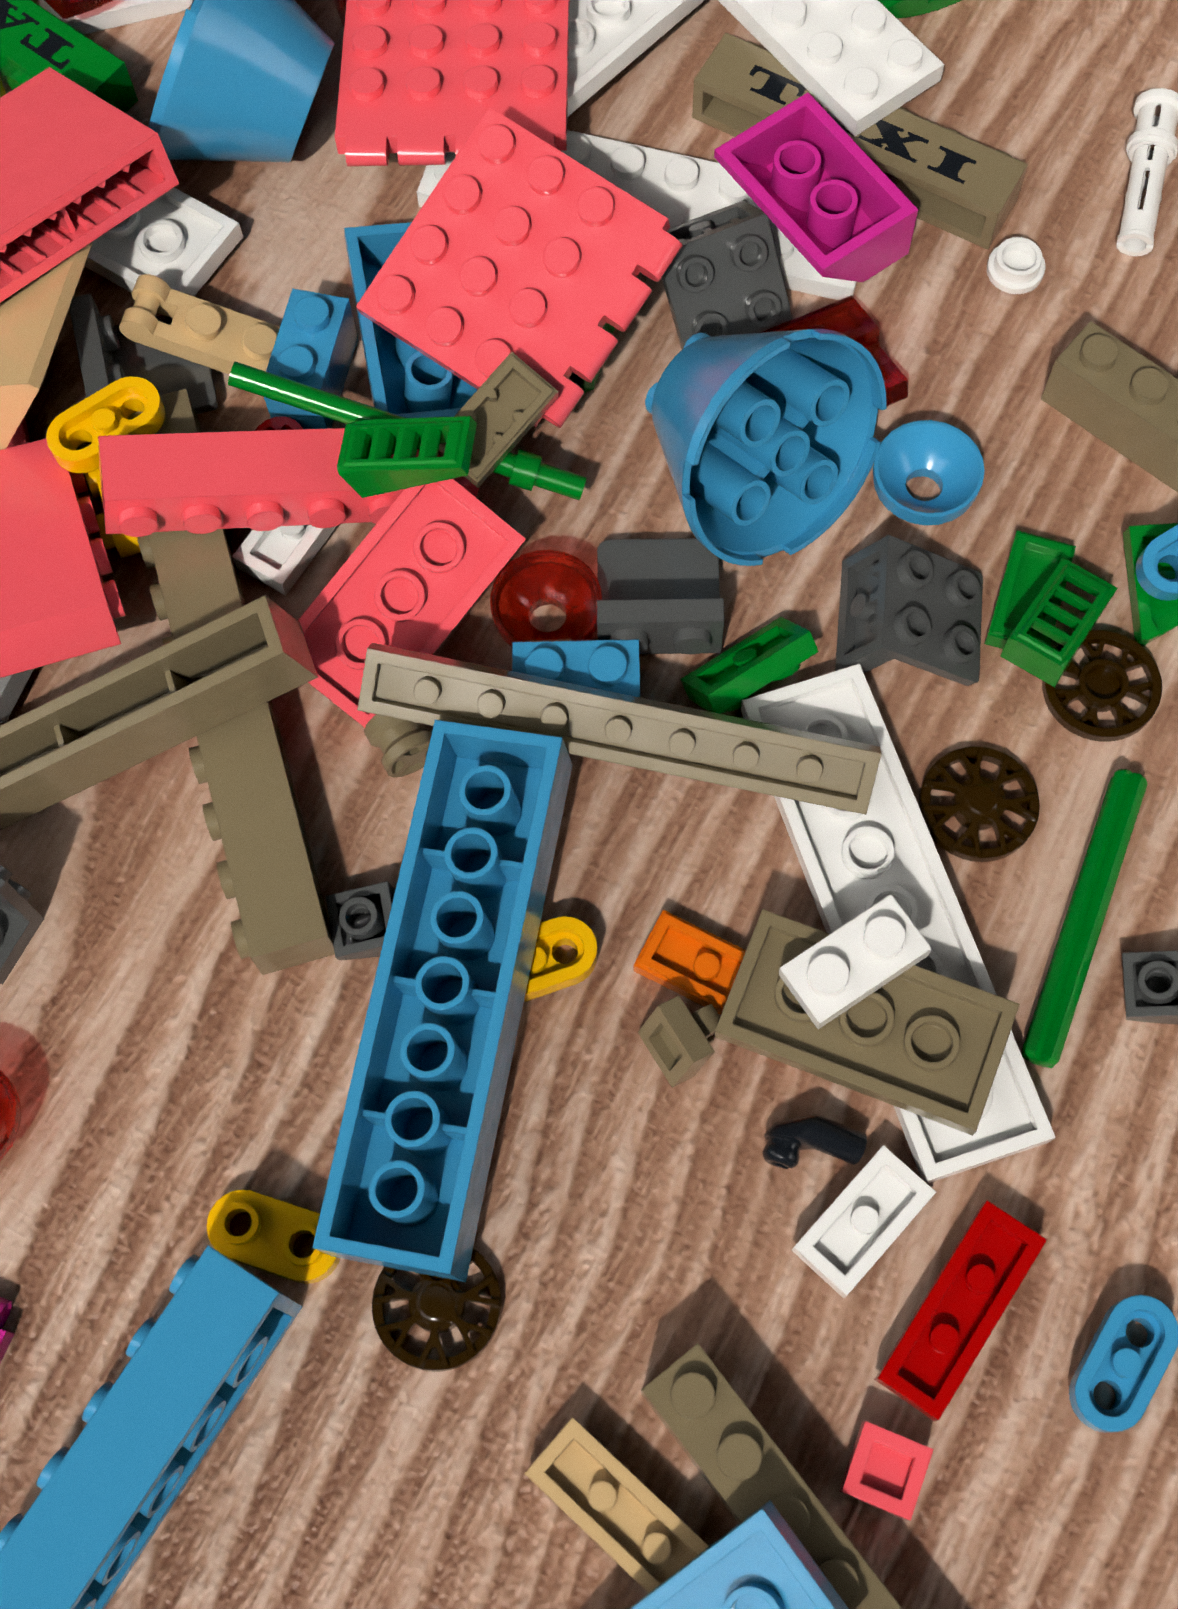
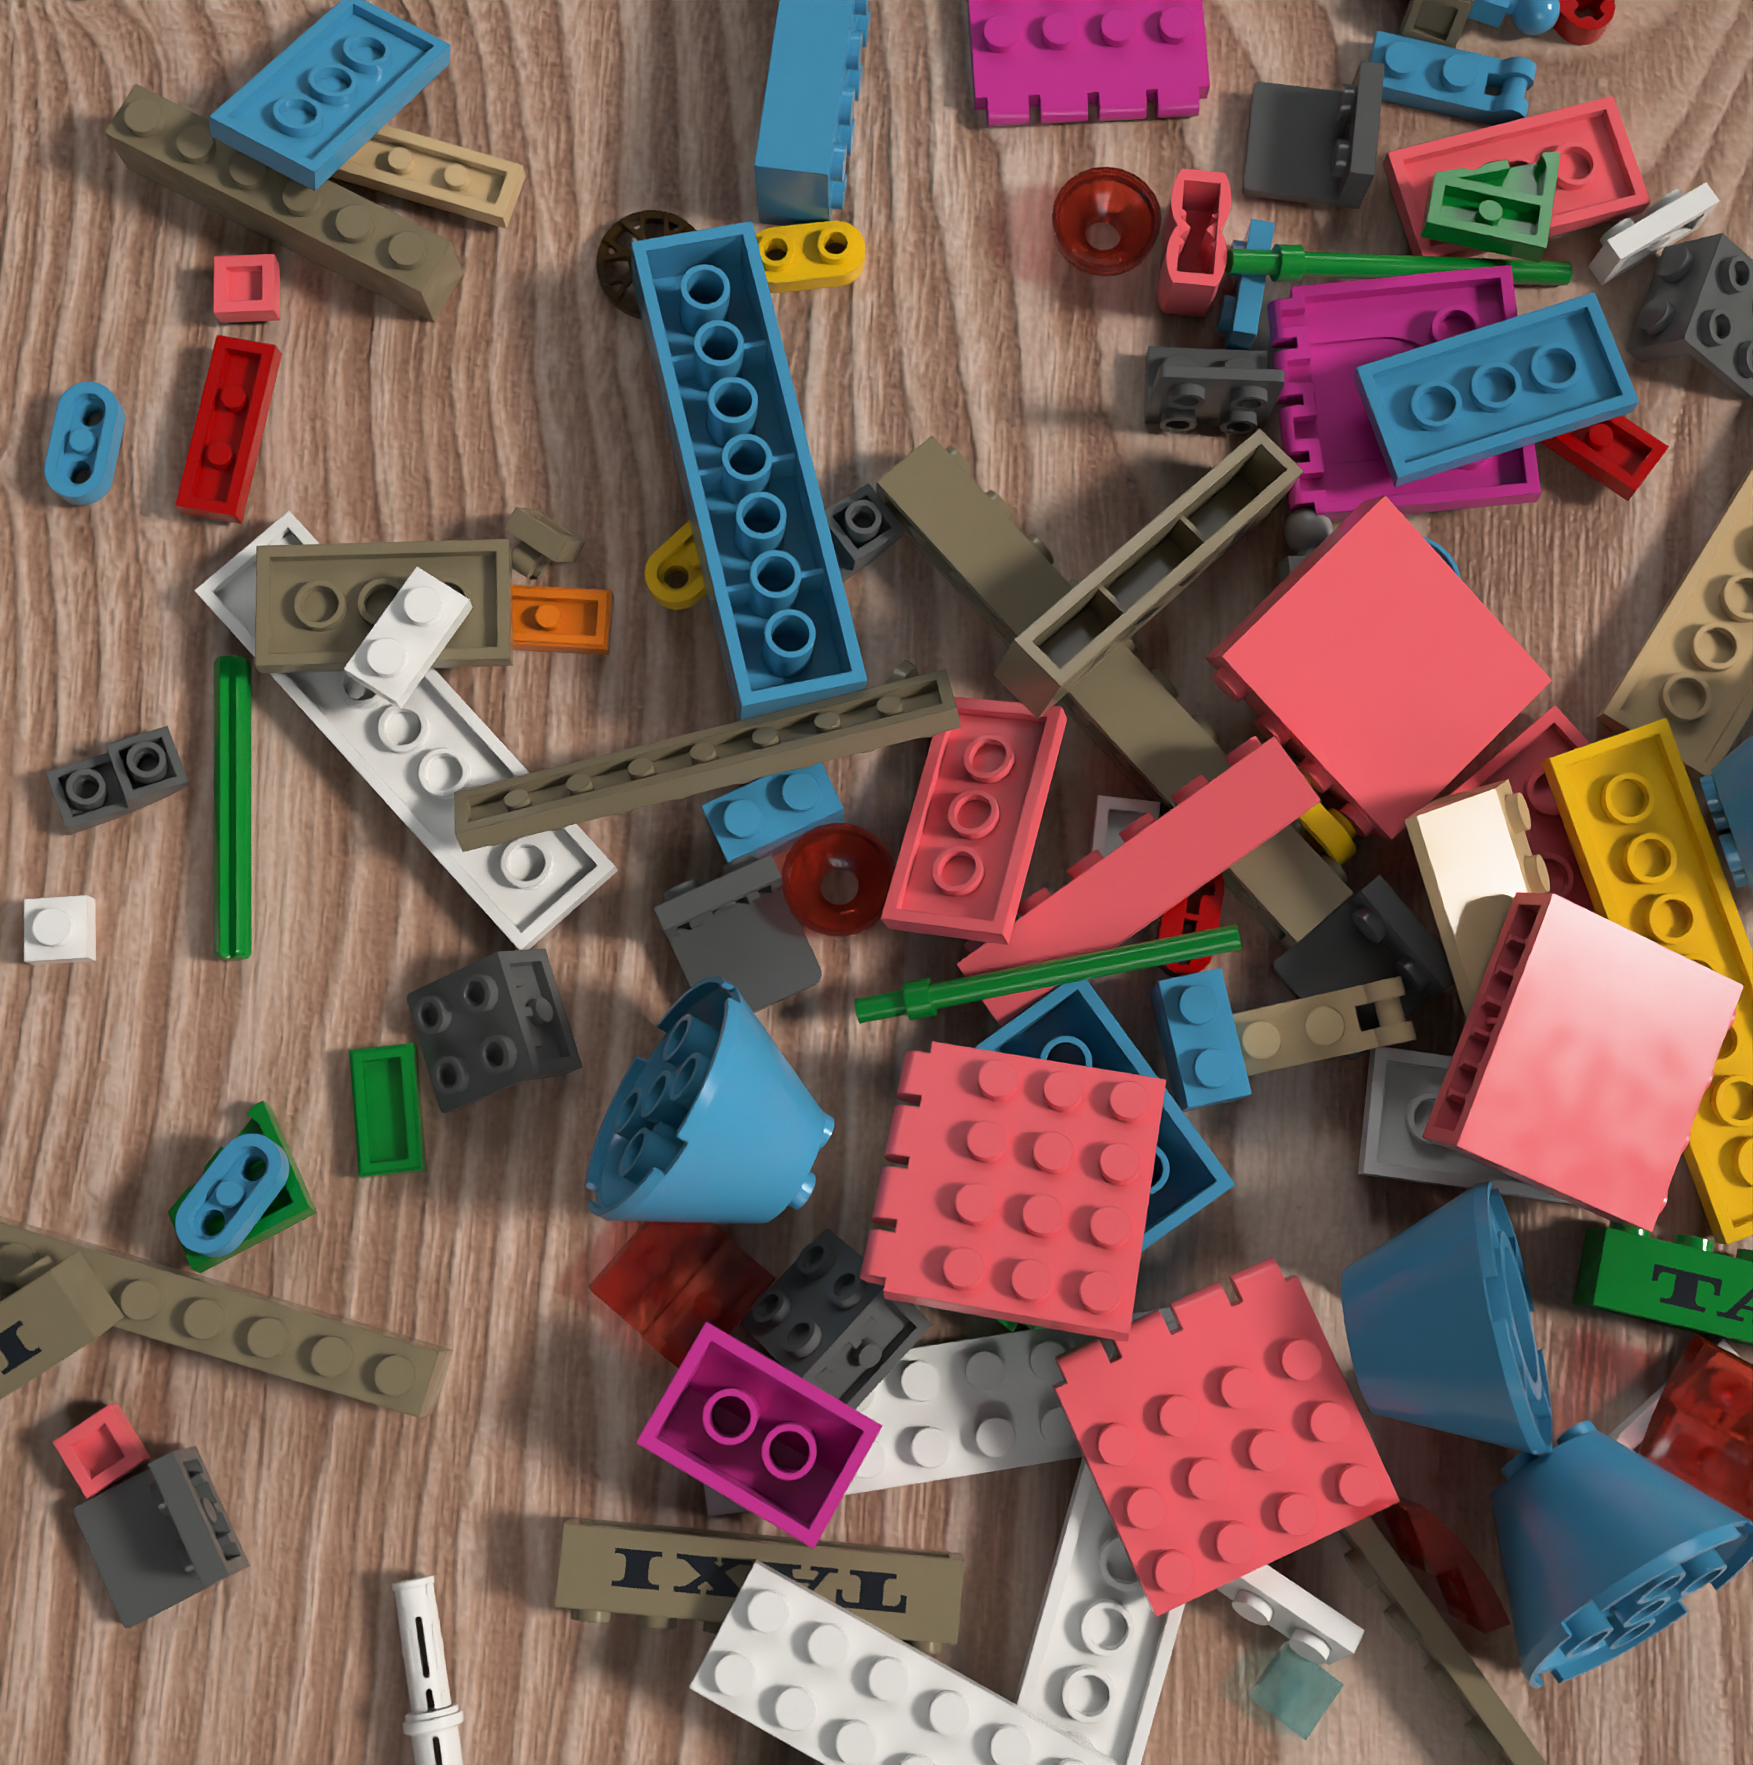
camera: 150 degrees right, 10 degrees up
(104, 415) = (1341, 856): yellow plate -> none
(368, 448) = (1061, 909): green slope -> none
(504, 413) = (963, 1012): dark tan plate -> none
(750, 665) = (622, 907): green plate -> none
(810, 1133) = (398, 514): black arm -> none
(863, 1221) = (332, 462): white plate -> none
(933, 452) = (495, 1177): dark azure piece -> none
(979, 803) = (364, 875): dark brown wheel -> none
(1016, 266) = (530, 1494): white plate -> none
(1036, 655) = (324, 1049): green slope -> none
(1103, 686) = (287, 1041): dark brown wheel -> none

